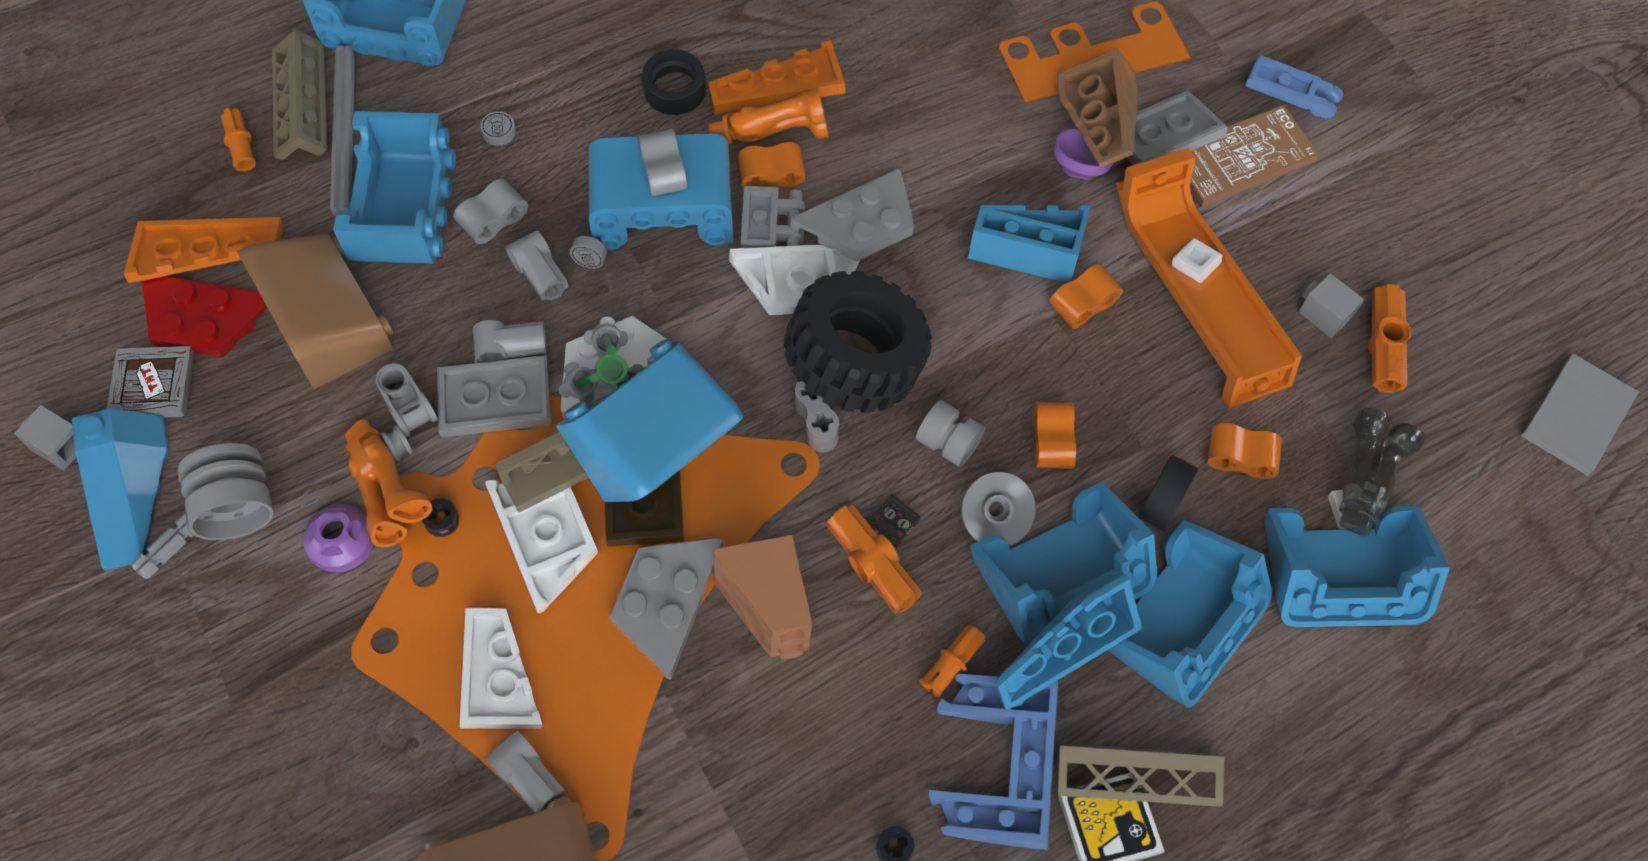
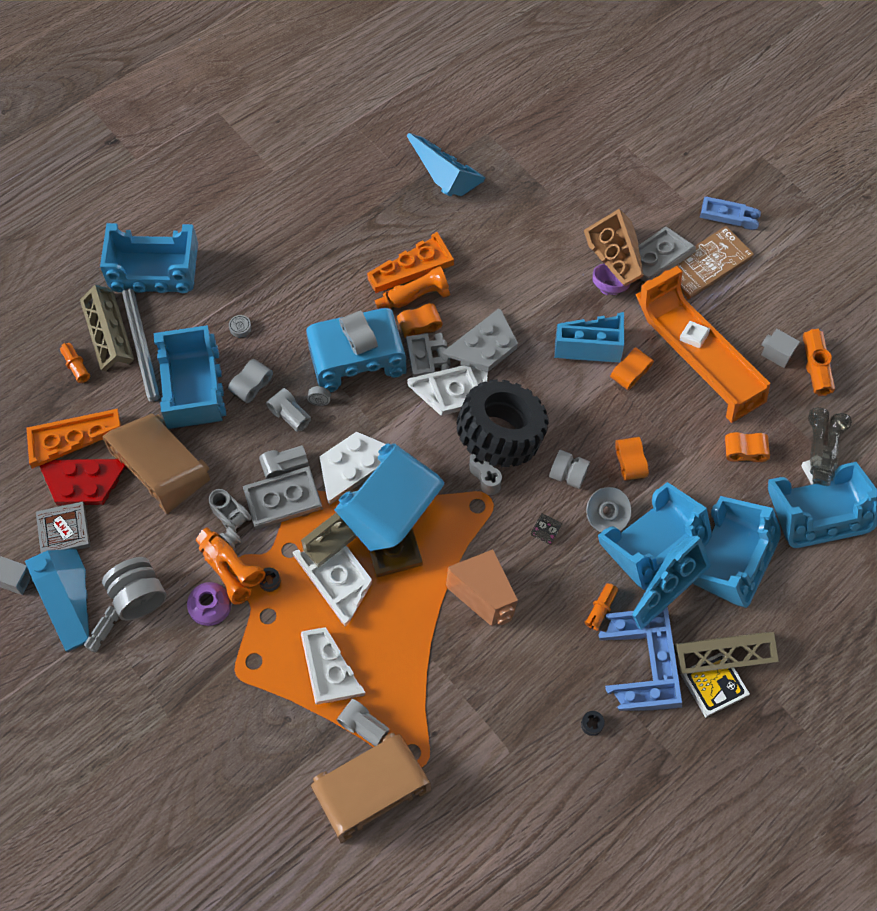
camera: 10 degrees left, 0 degrees up
(609, 368) = (356, 468): light grey plant -> none
(664, 598) = (418, 602): light grey wing -> none
(668, 62) = (347, 290): black tyre -> none
(874, 559) = (540, 554): orange piece -> none
(1146, 50) = (634, 204): orange piece -> none
(1168, 493) = (708, 481): black tyre -> none

